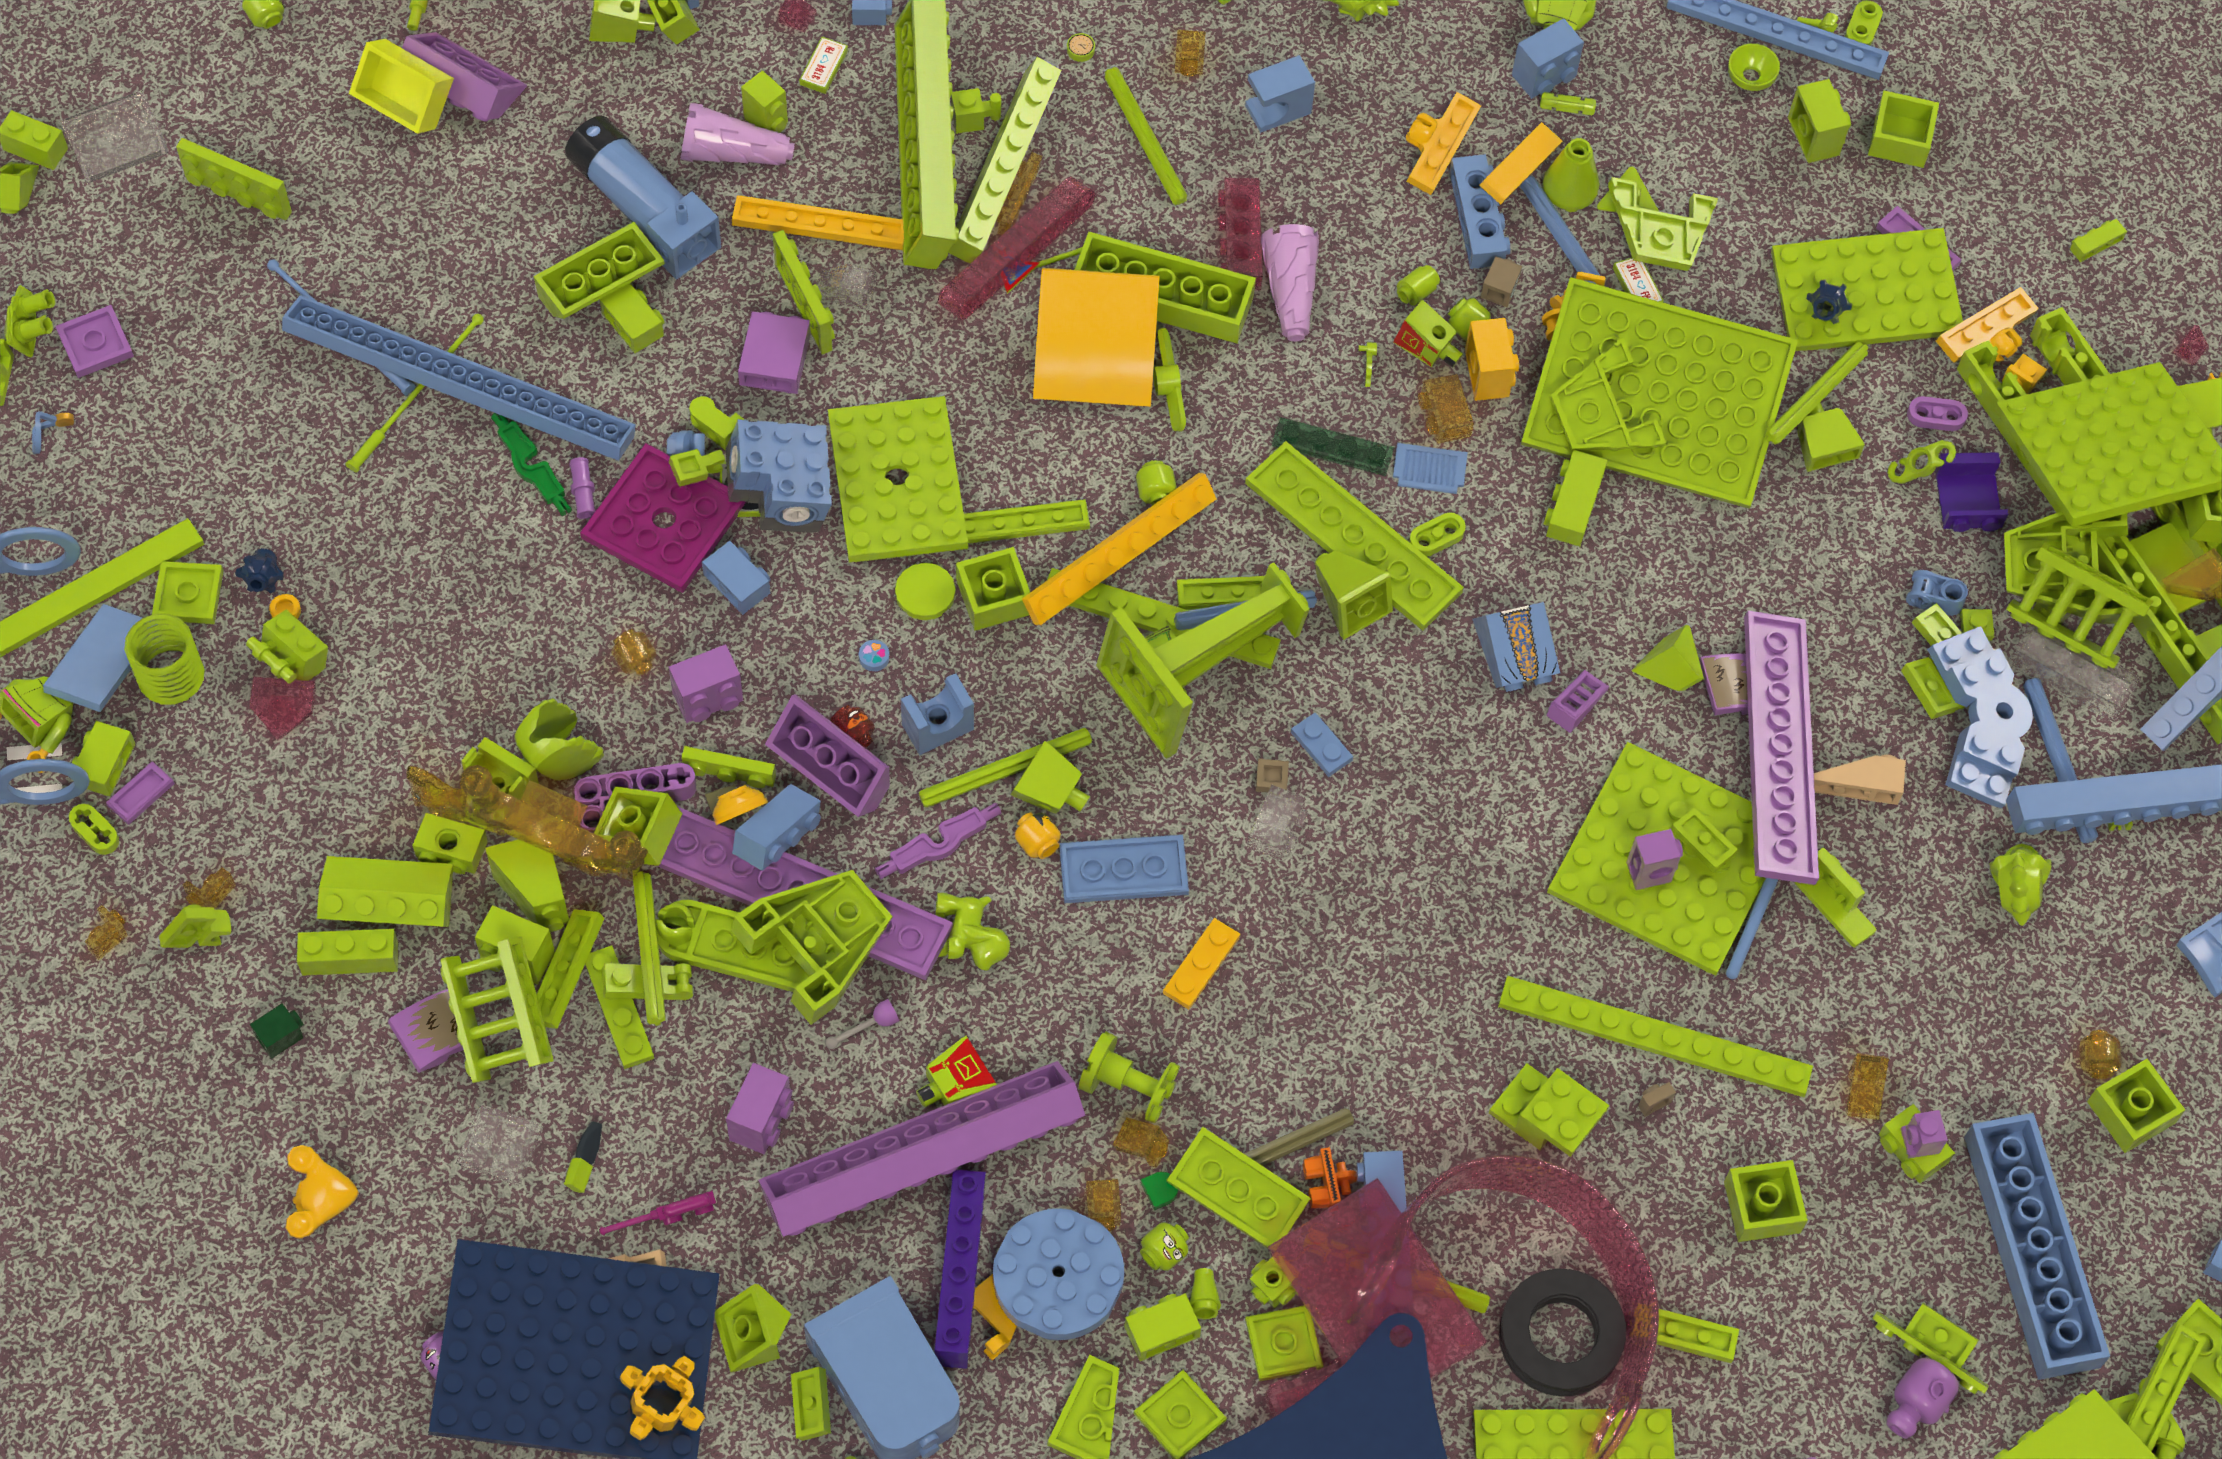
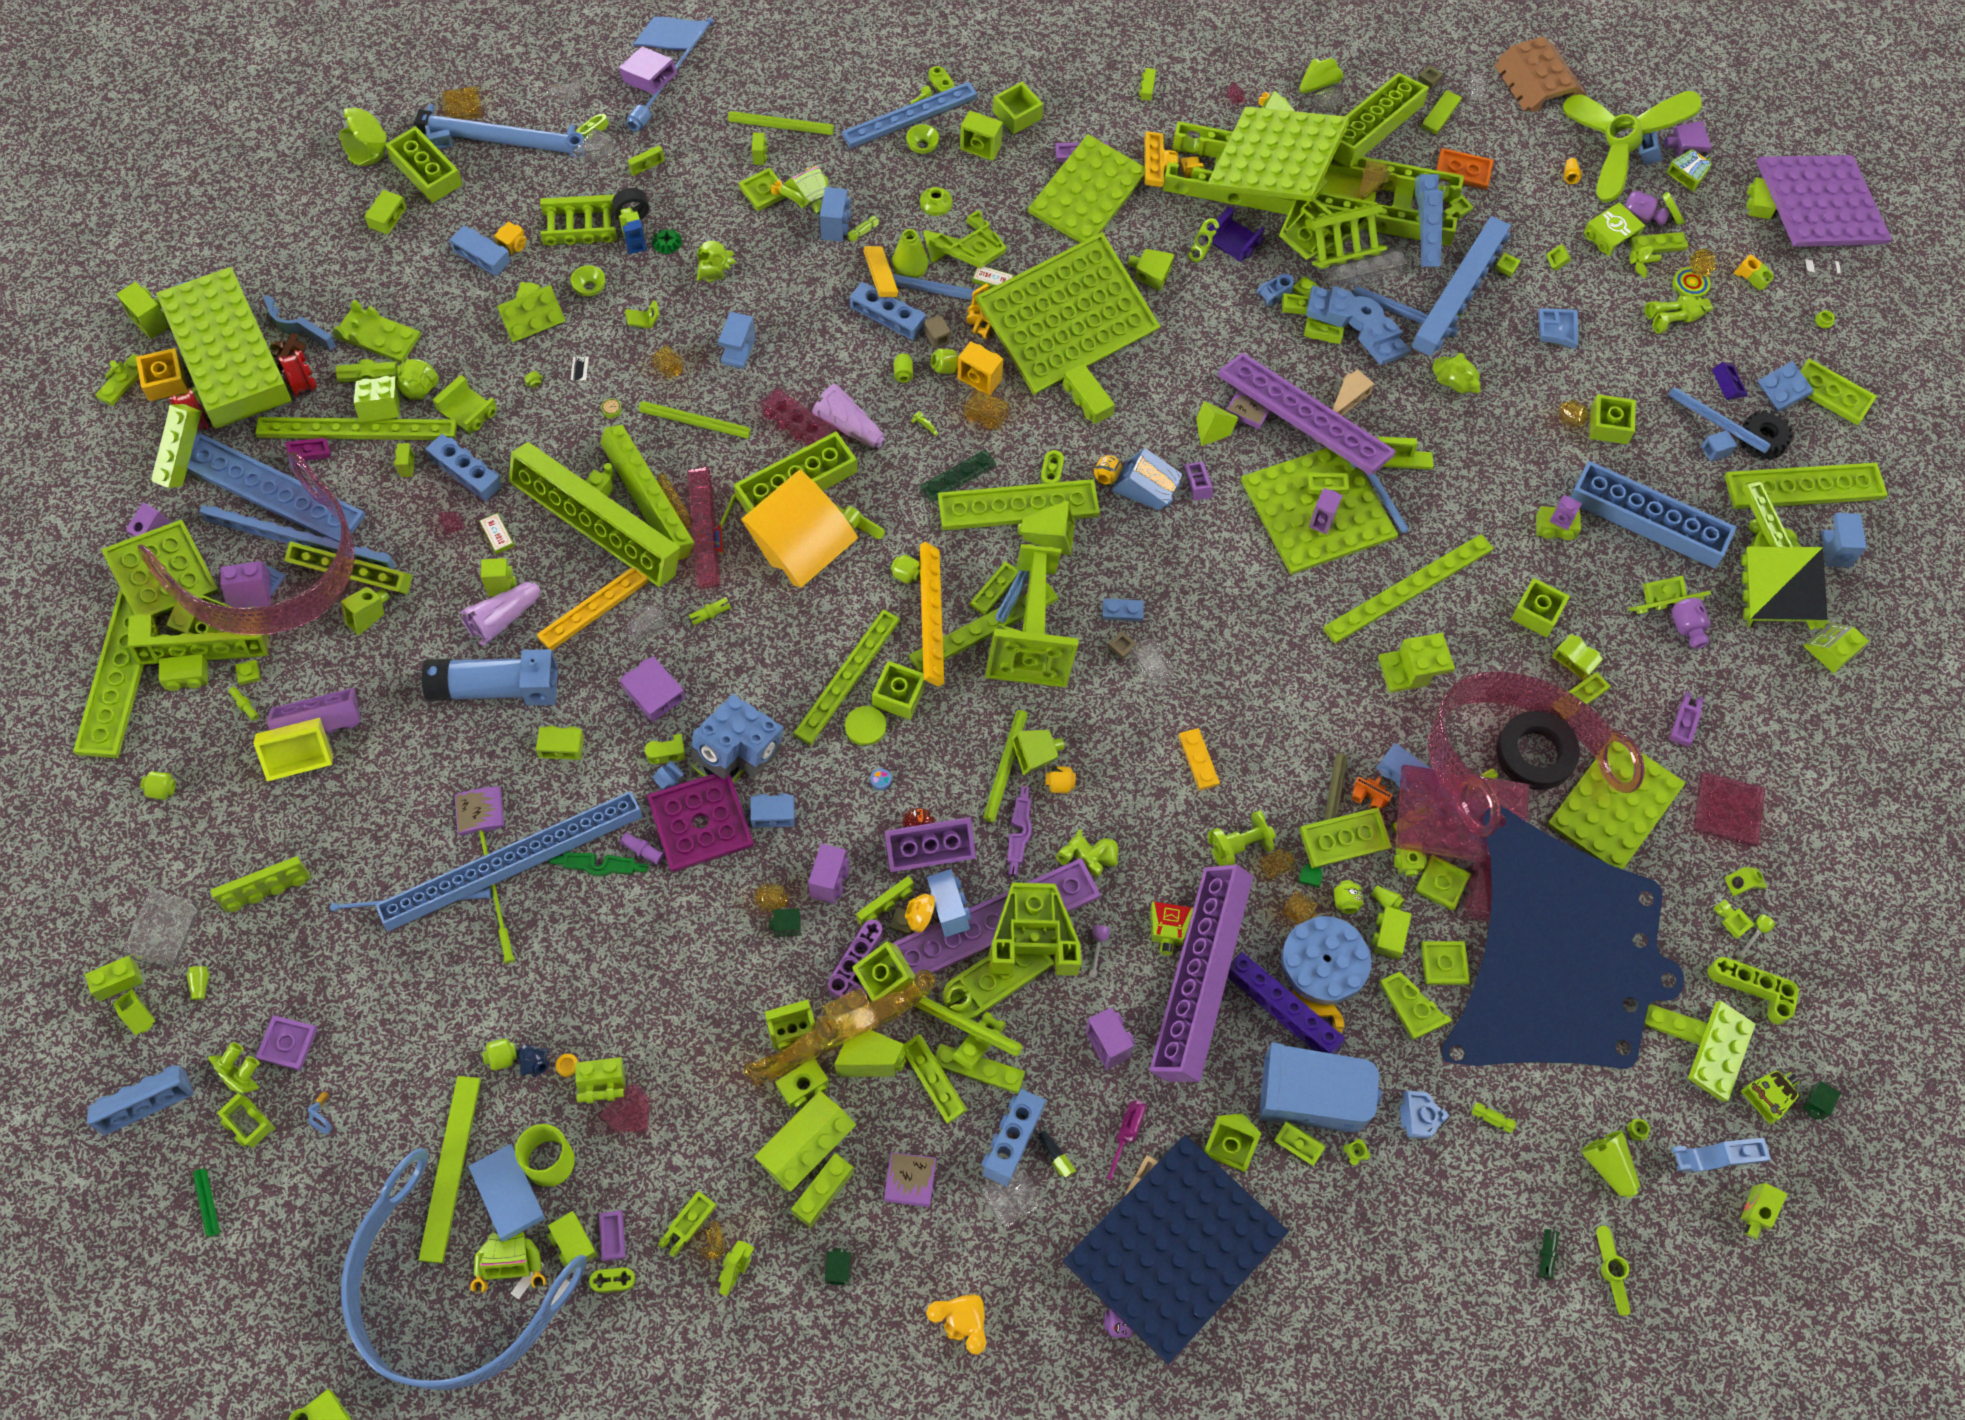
camera: 50 degrees left, 0 degrees up
(91, 213) = (197, 981): none -> lime cone
(106, 937) = (691, 1326): clear yellow bracket -> none
(188, 591) = (506, 1112): lime plate -> none
(210, 851) = (688, 1222): none -> lime hinge
(241, 536) = (499, 1054): none -> lime head
(490, 306) = (479, 810): none -> slope
(505, 925) = (901, 1094): lime piece -> none
(527, 1013) = (937, 1110): lime fence -> none
(544, 744) = (807, 986): lime animal -> none
(582, 1102) = (1001, 1169): none -> medium blue brick
(596, 271) = (519, 738): lime slope -> none
(618, 689) = (785, 922): none -> dark green brick
(677, 1379) = (1260, 1214): yellow piece -> none
(692, 467) = (688, 780): lime plate -> none
(805, 295) = (631, 645): lime plate -> none
(905, 518) = (808, 709): lime plate -> none
(920, 334) = (709, 611): none -> lime pin
(950, 705) = (952, 762): medium blue piece -> none
(1123, 869) = (1113, 754): medium blue tile -> none
(1428, 336) = (939, 385): lime torso -> none
(1429, 468) = (1009, 443): medium blue window -> none
(1439, 141) = (830, 296): yellow plate -> none
(1491, 592) = (1107, 469): none -> yellow head
(1591, 412) = (1053, 348): lime wing -> none
(1656, 1098) = (1445, 612): dark tan plate -> none
(1683, 156) = (936, 206): none -> lime piece
(1740, 1293) = (1577, 656): none -> lime brick
(1817, 392) = (1128, 251): lime axle -> none
(1829, 301) = (1086, 207): dark blue rock -> none
(1867, 1085) = (1513, 517): clear yellow slope -> none
(1936, 412) = (1177, 215): medium lavender plate -> none

